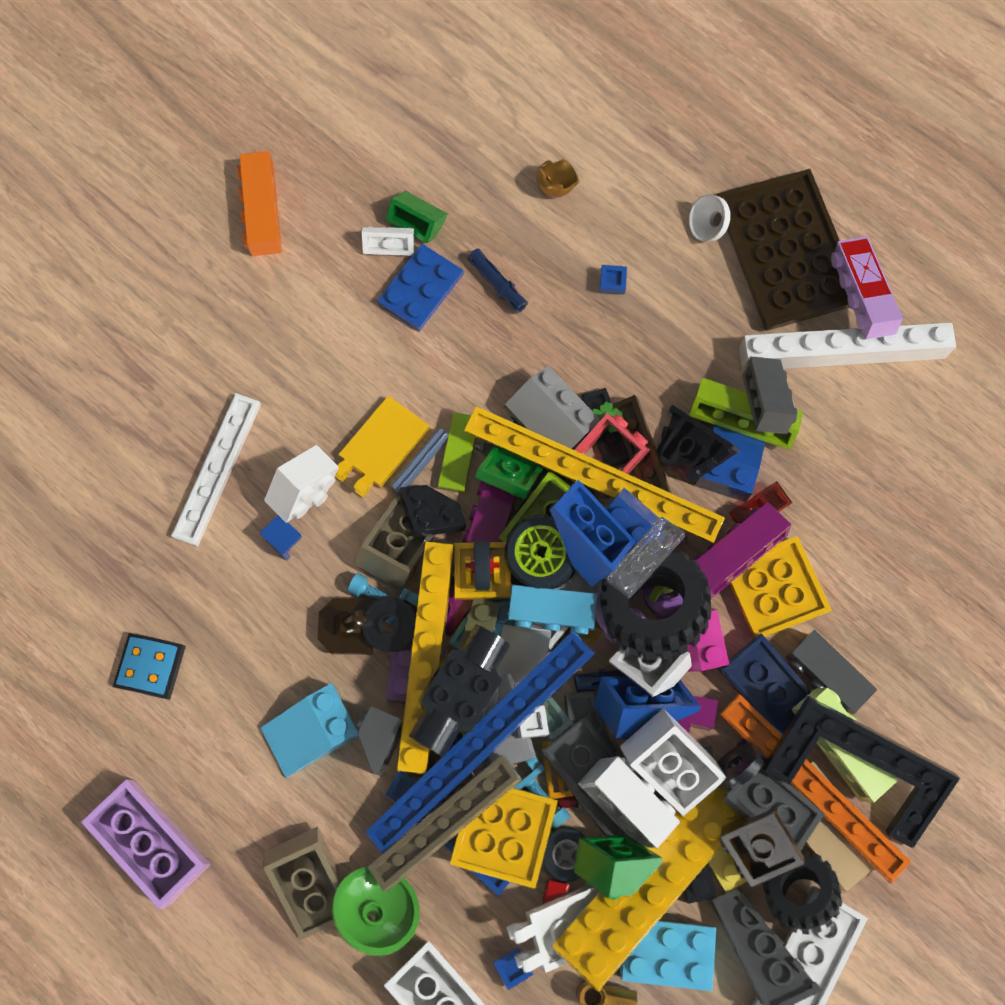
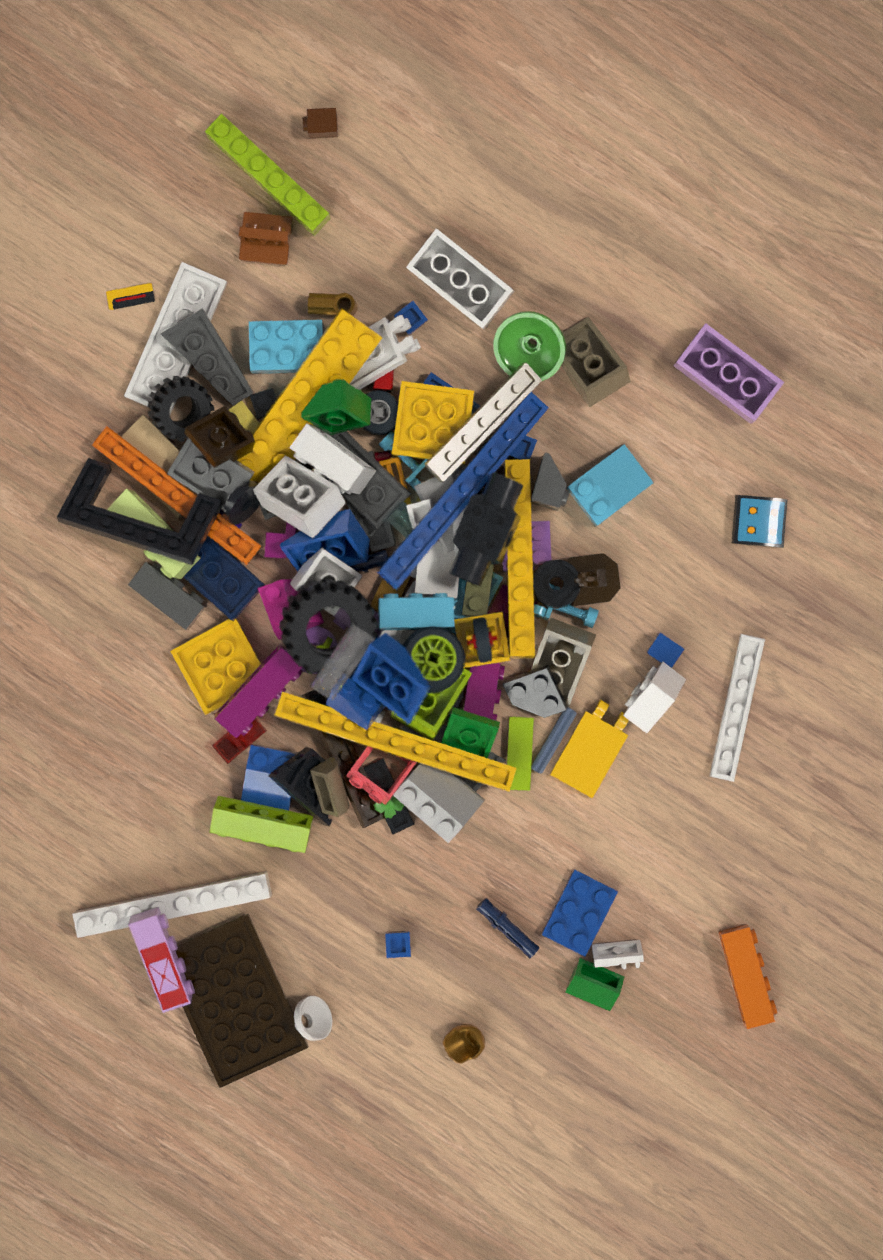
camera: 170 degrees right, 15 degrees up
(668, 438) = (330, 788): none -> dark tan brick
(769, 395) = (243, 839): dark grey brick -> none

